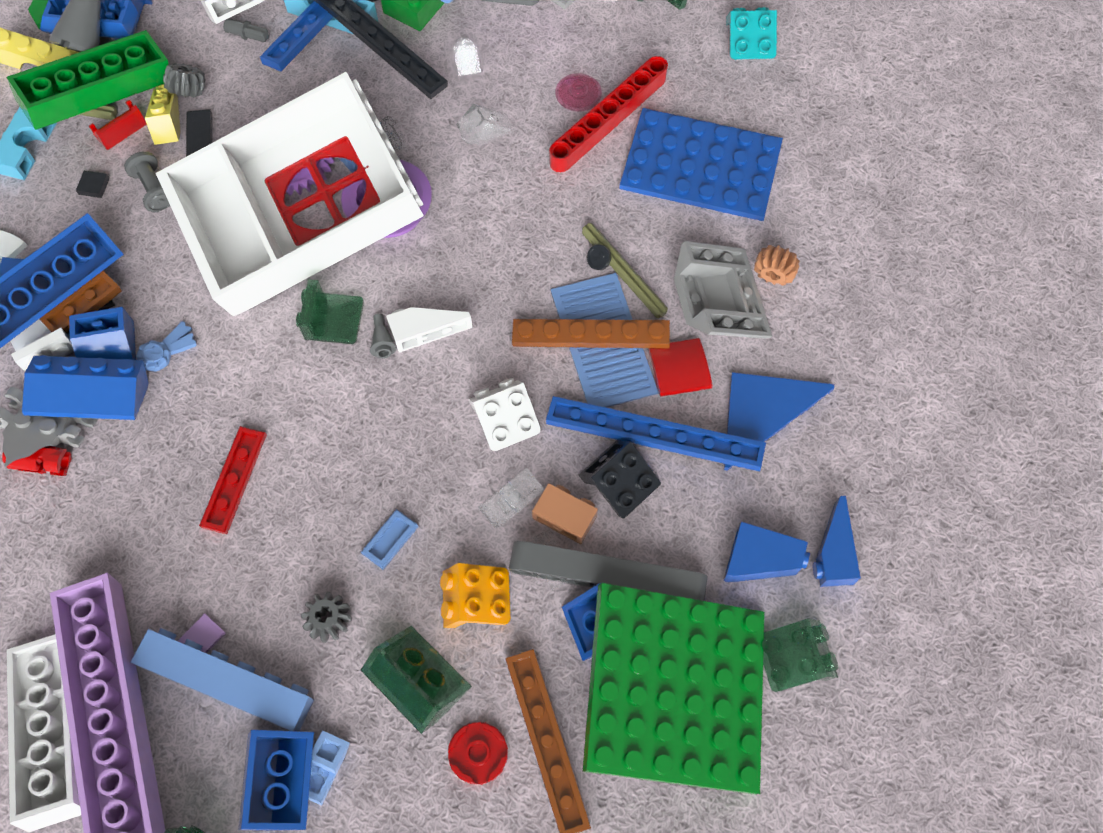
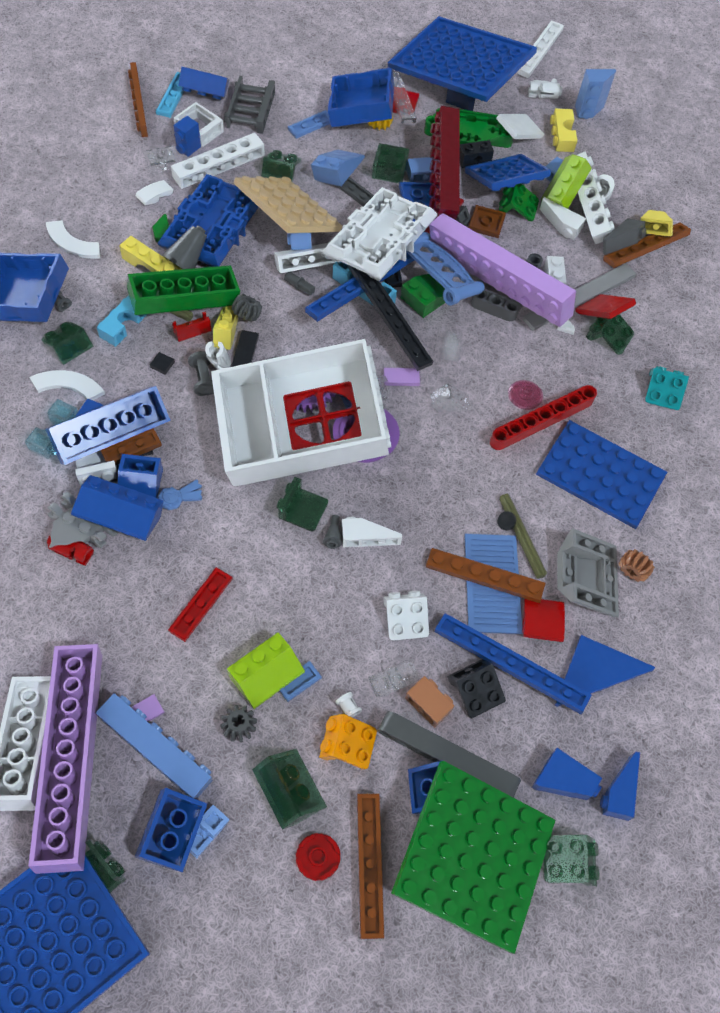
camera: 10 degrees right, 5 degrees down
(162, 152) = (217, 358): none -> white piece
(342, 538) = (265, 670): none -> lime slope
(414, 113) = (402, 377): none -> lavender tile
(462, 549) = (348, 705): none -> white bush

